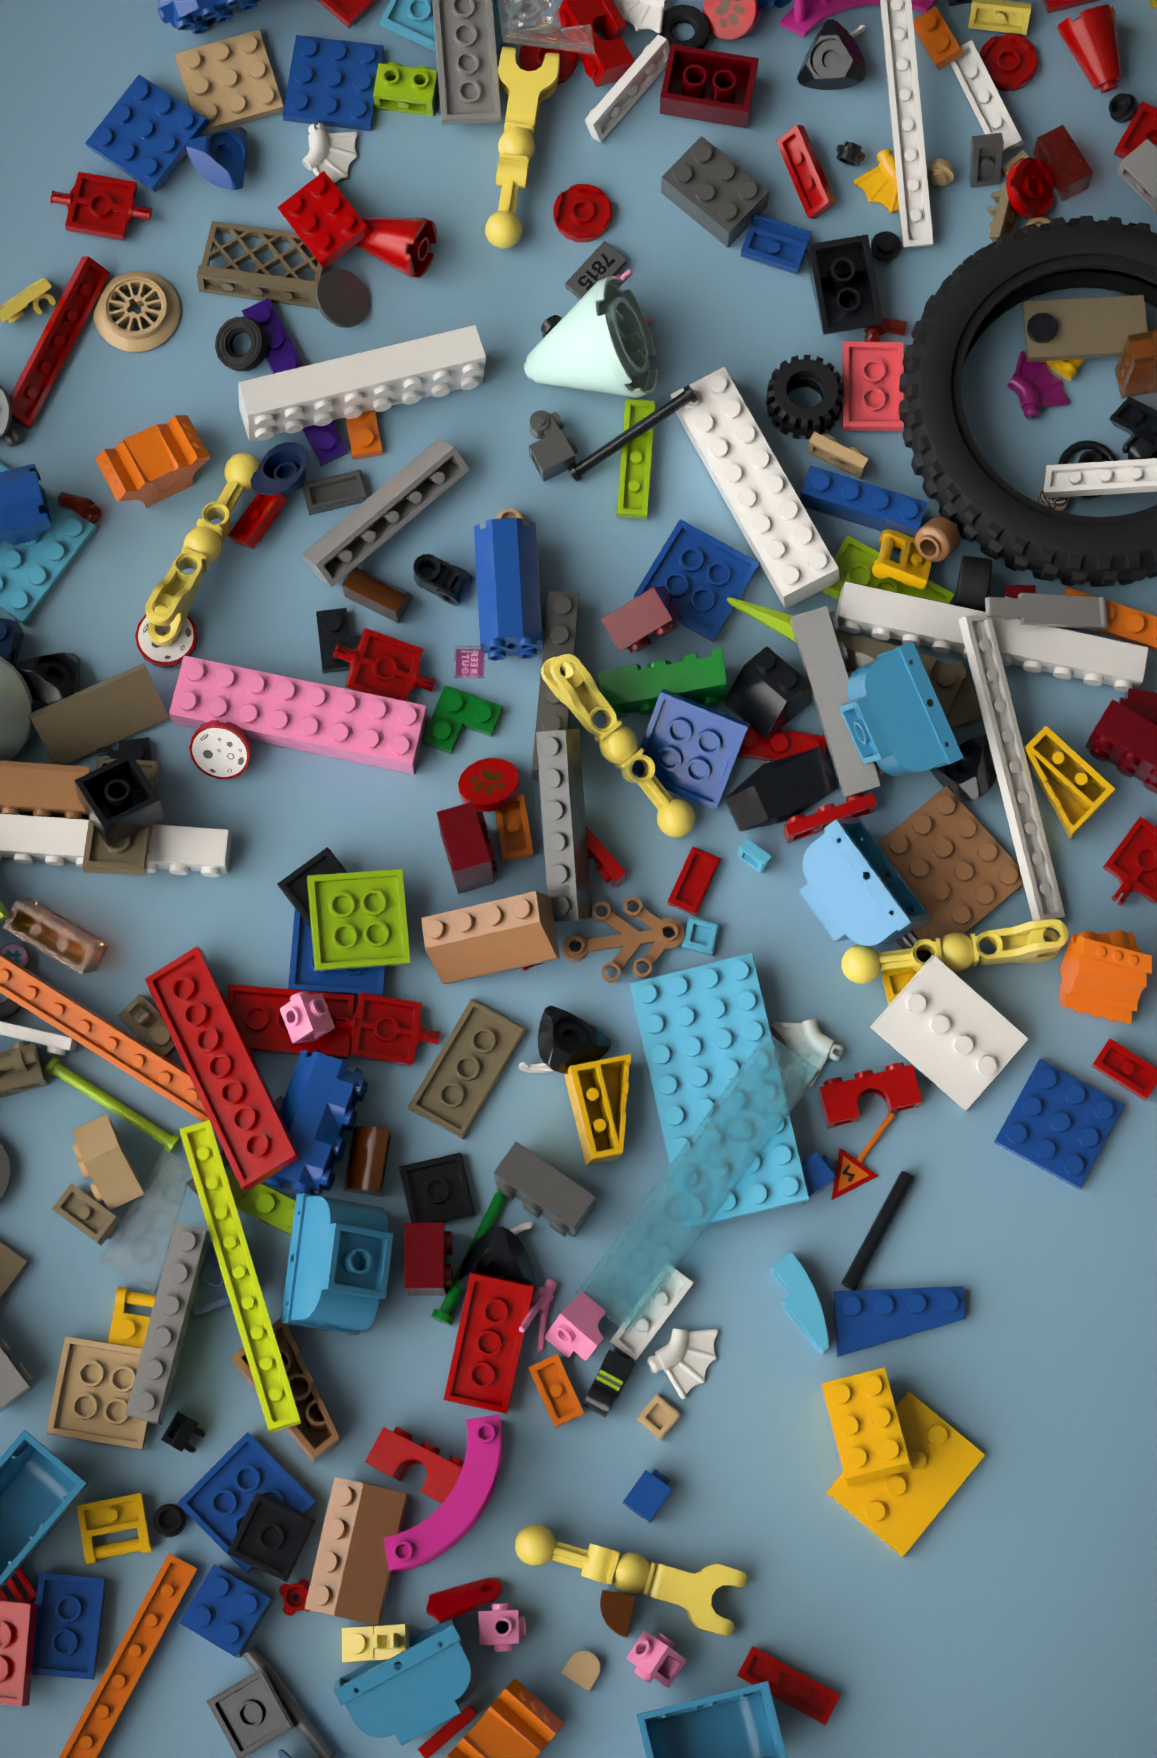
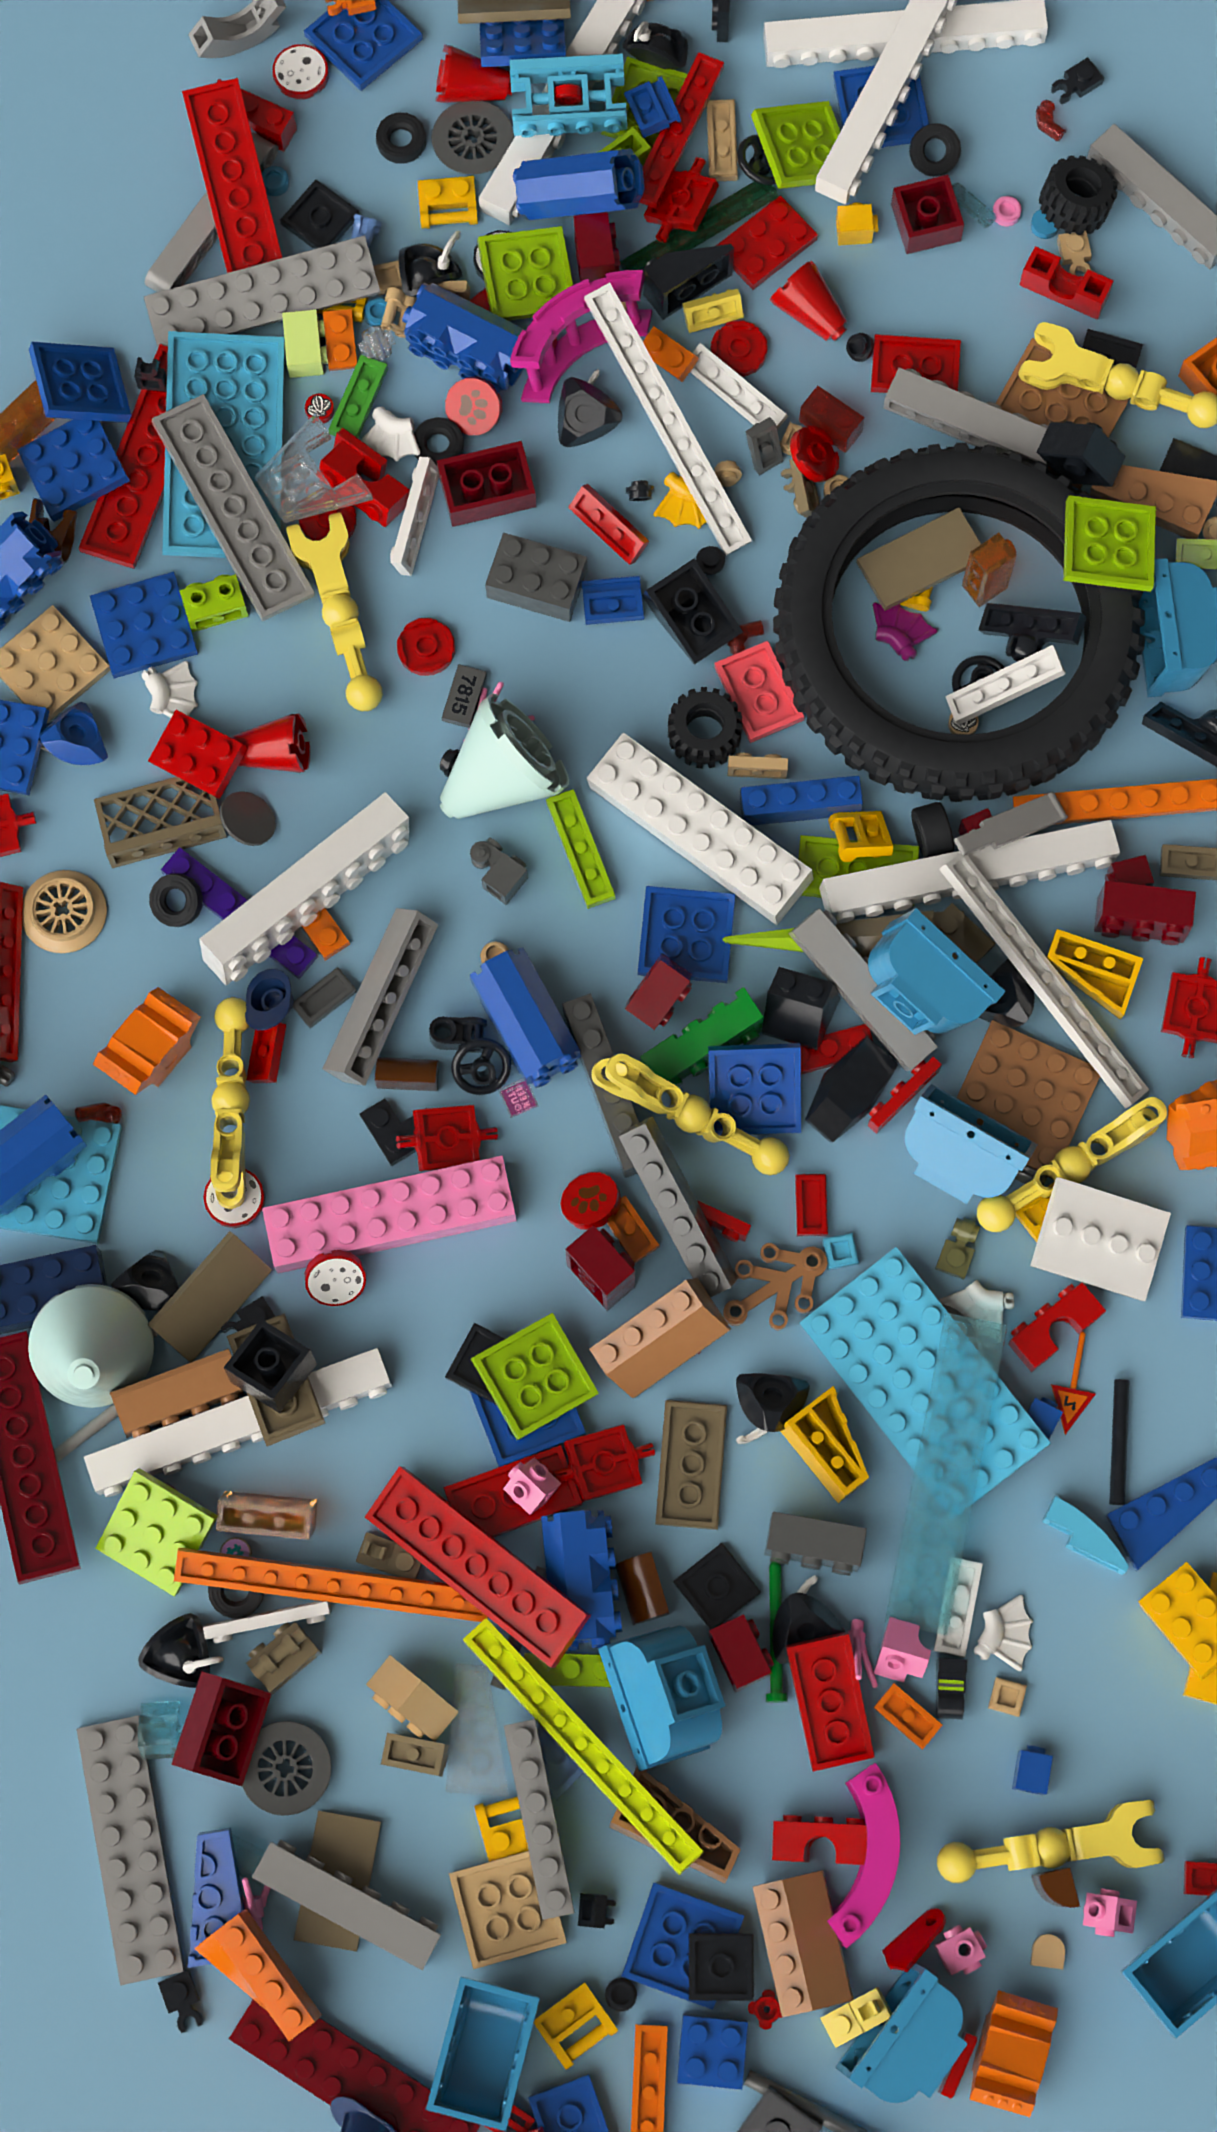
camera: 25 degrees left, 0 degrees up
(115, 1106) = (390, 1644): lime bar -> none
(443, 627) = (484, 1077): none -> black piece
(459, 710) = (526, 1149): green plate -> none
(632, 433) = (569, 827): black bar -> none
(754, 855) = (854, 1158): medium azure tile -> none
(807, 989) = (955, 1255): none -> olive plate
(937, 539) = (883, 804): medium nougat head -> none
(1042, 328) = (885, 575): black piece -> none

